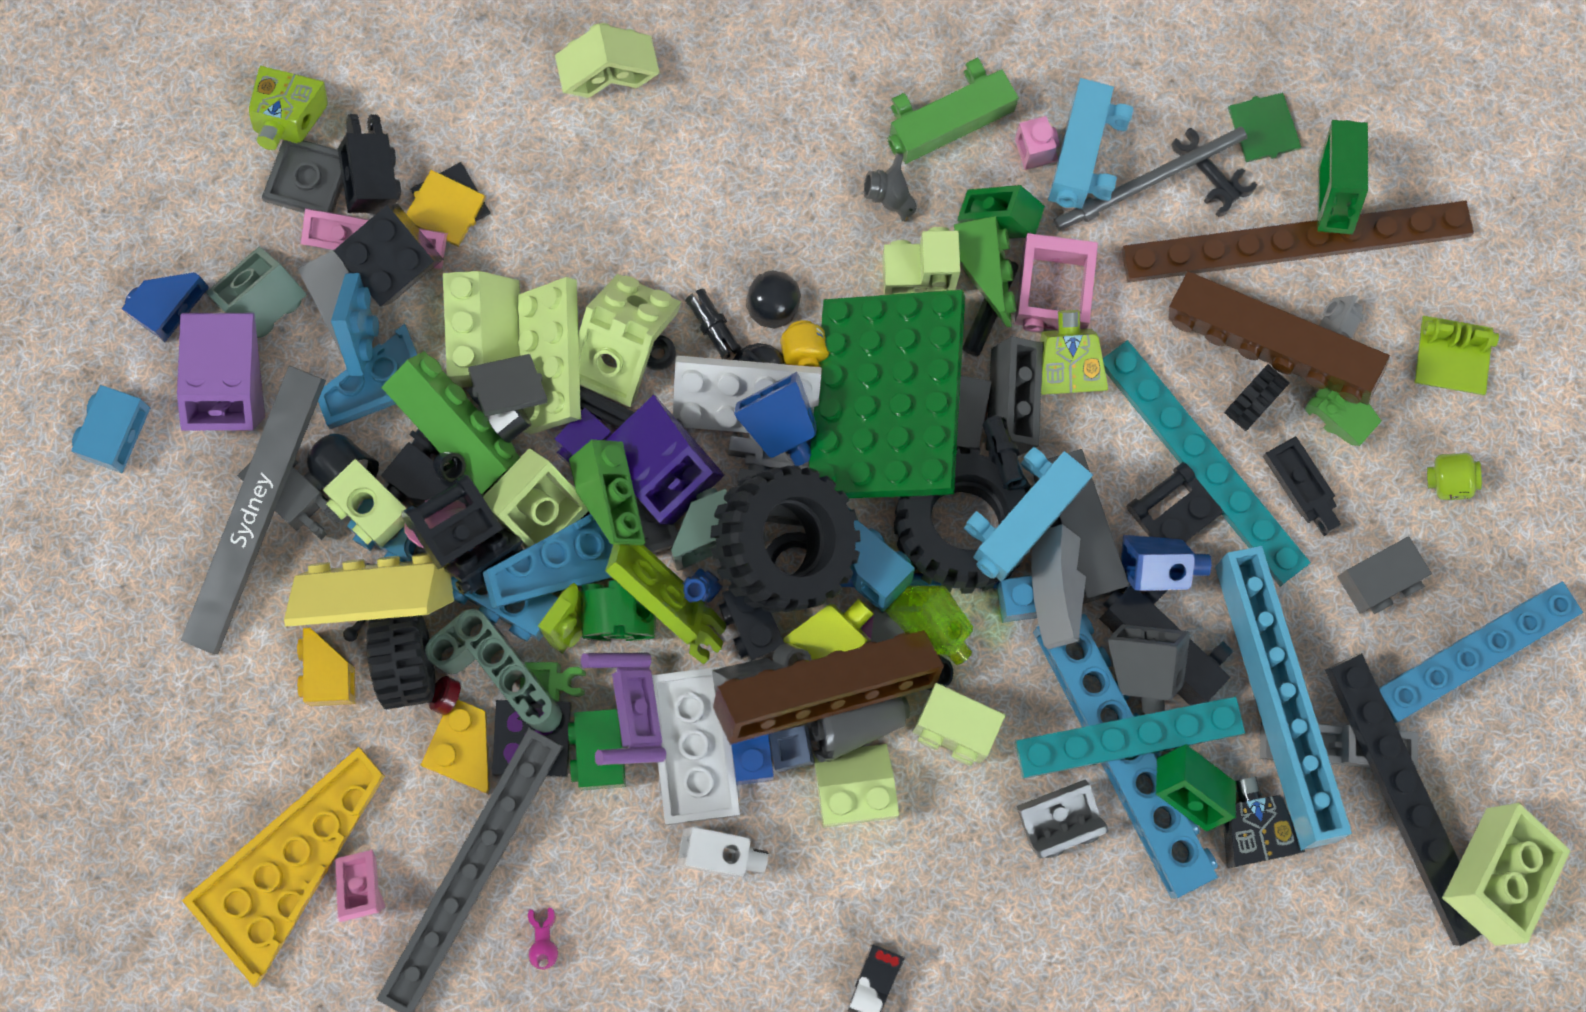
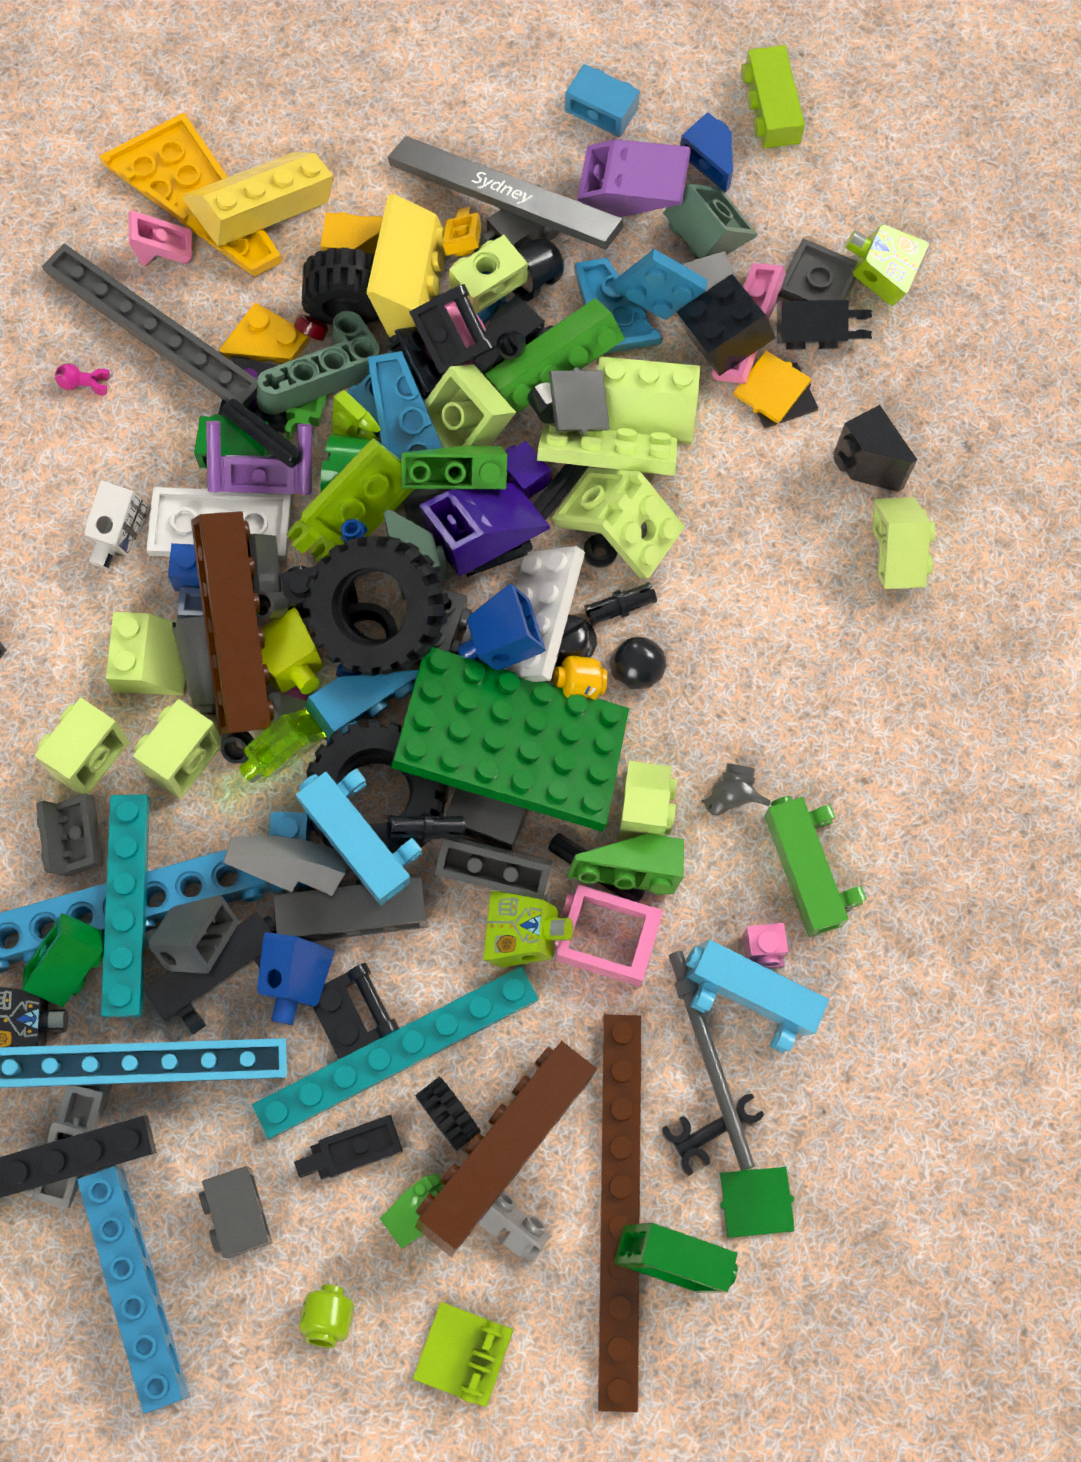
camera: 100 degrees right, 5 degrees down
(85, 247) = (773, 96): none -> lime brick
(285, 785) = (261, 196): none -> light yellow slope
(312, 544) = (462, 233): none -> yellow hinge
(512, 94) = (874, 451): none -> black slope
(595, 709) = (262, 433): none -> black axle
(976, 824) = (81, 747): none -> yellowish green brick
(1012, 206) = (694, 896): green slope -> none

